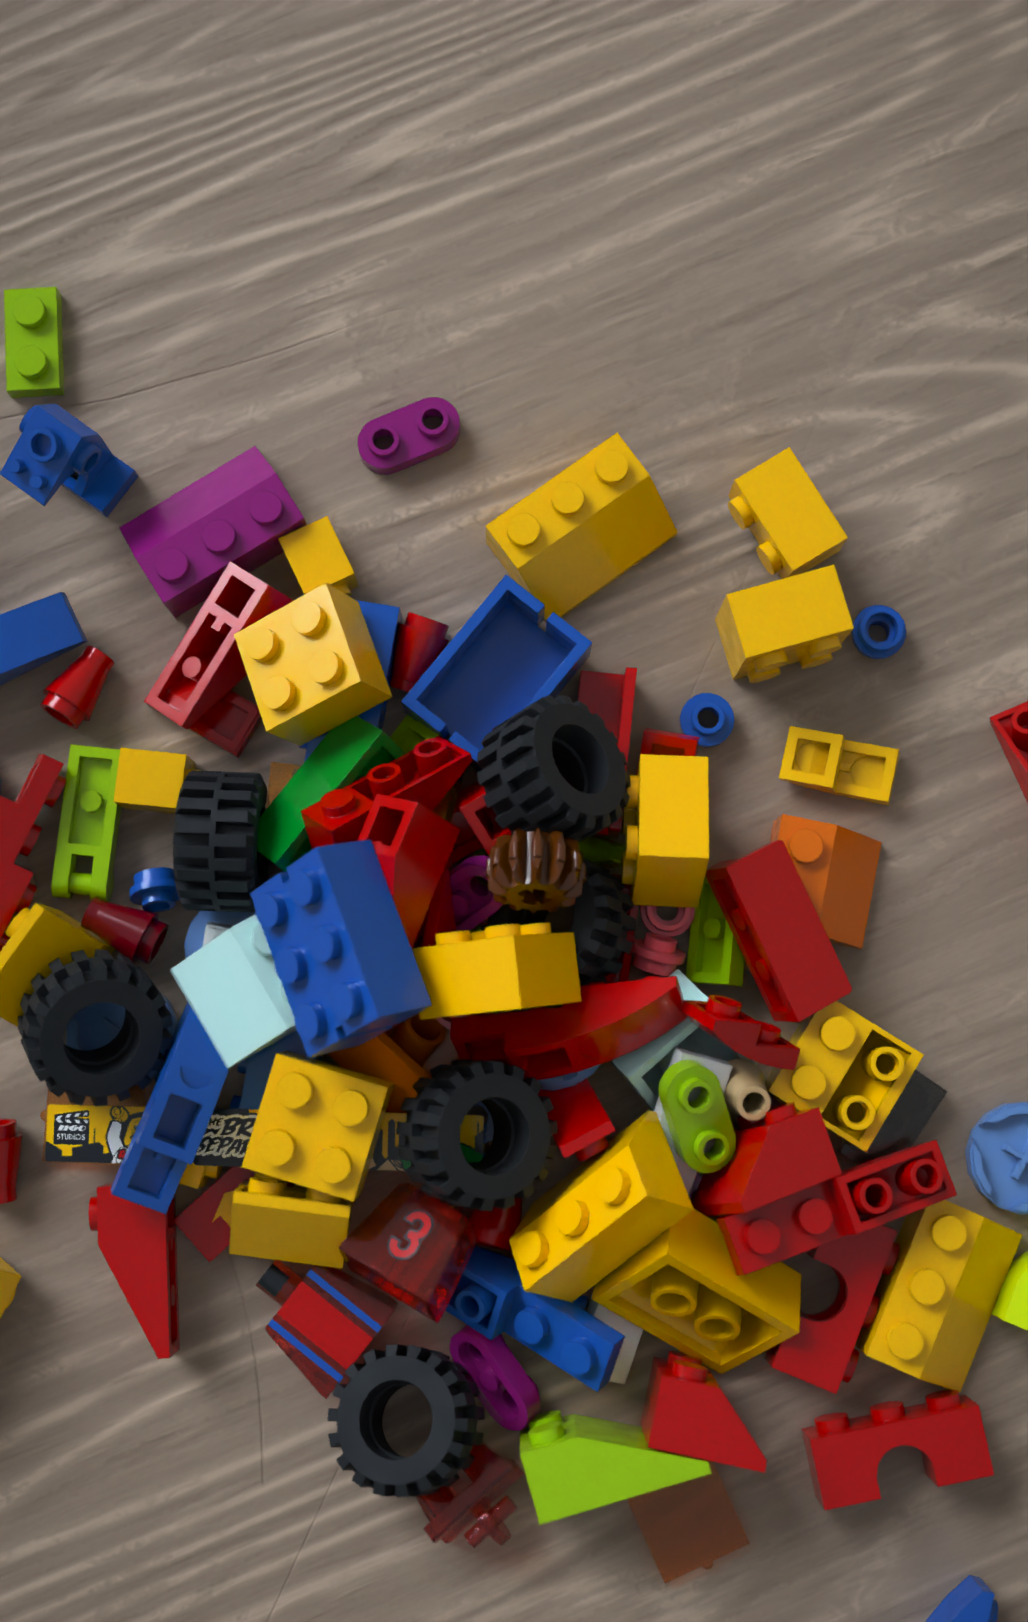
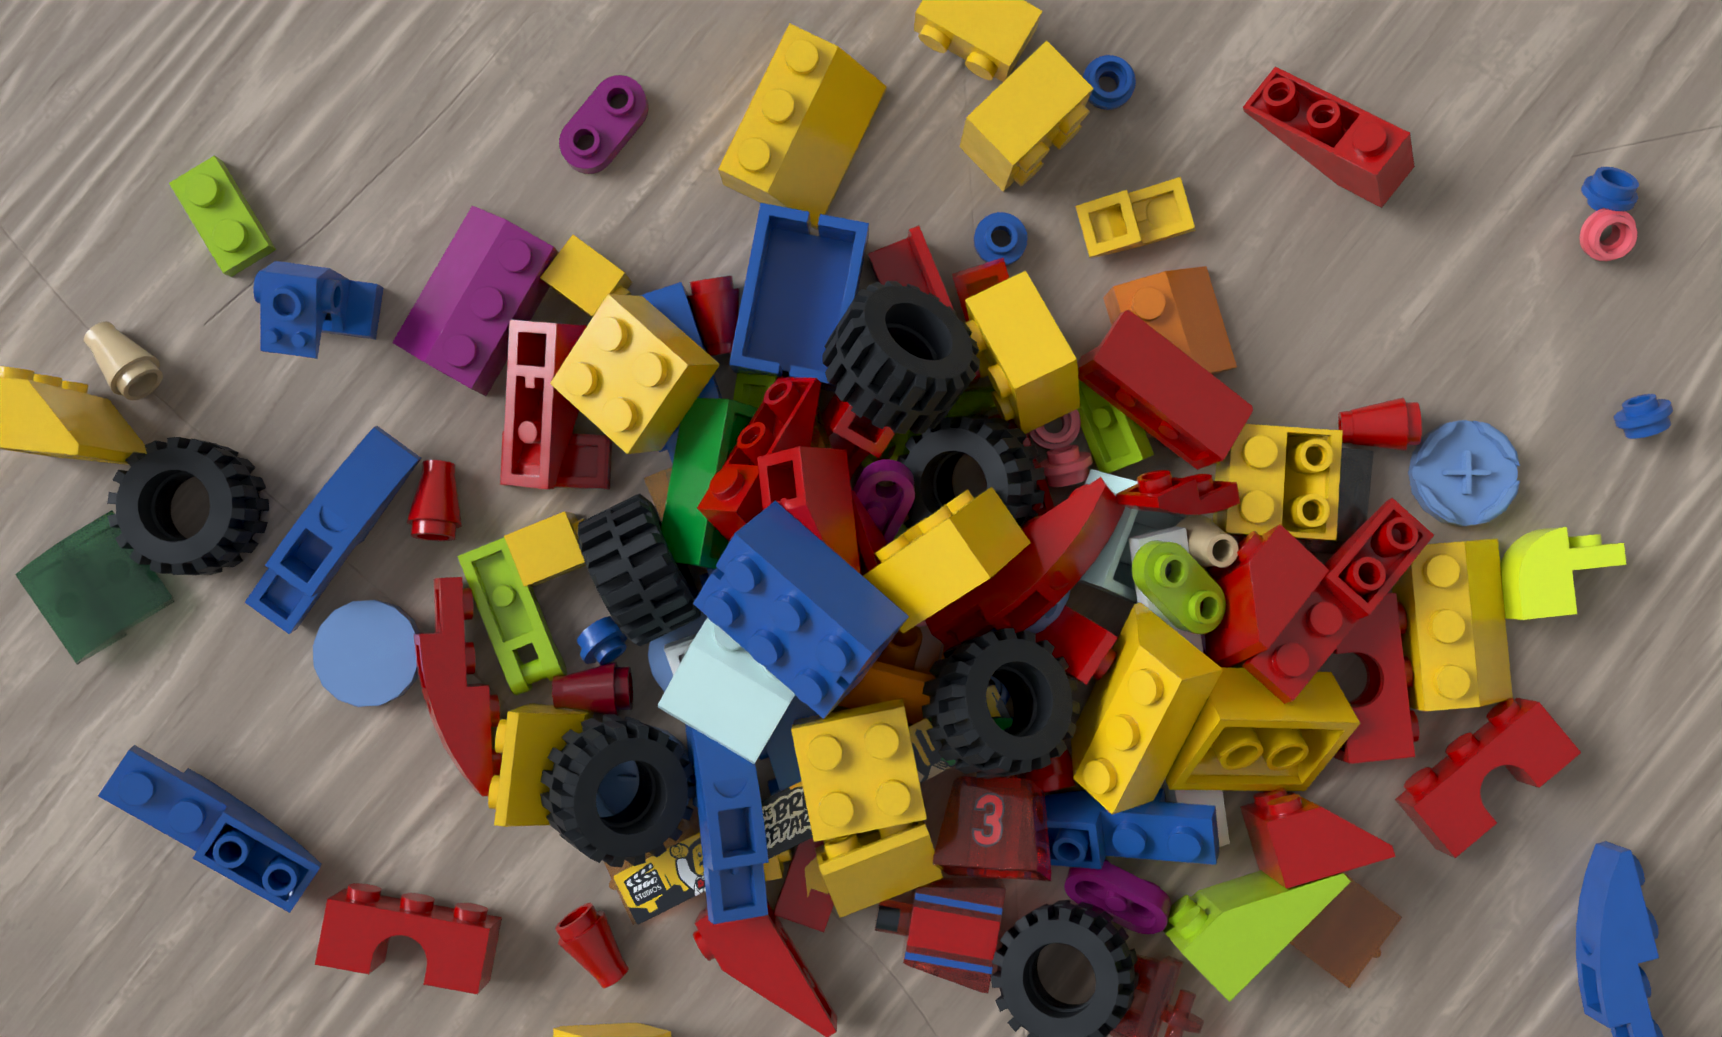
camera: 30 degrees left, 5 degrees up
(535, 870) = (932, 450): reddish brown gear -> none
(967, 1072) = (1383, 425): none -> red cone

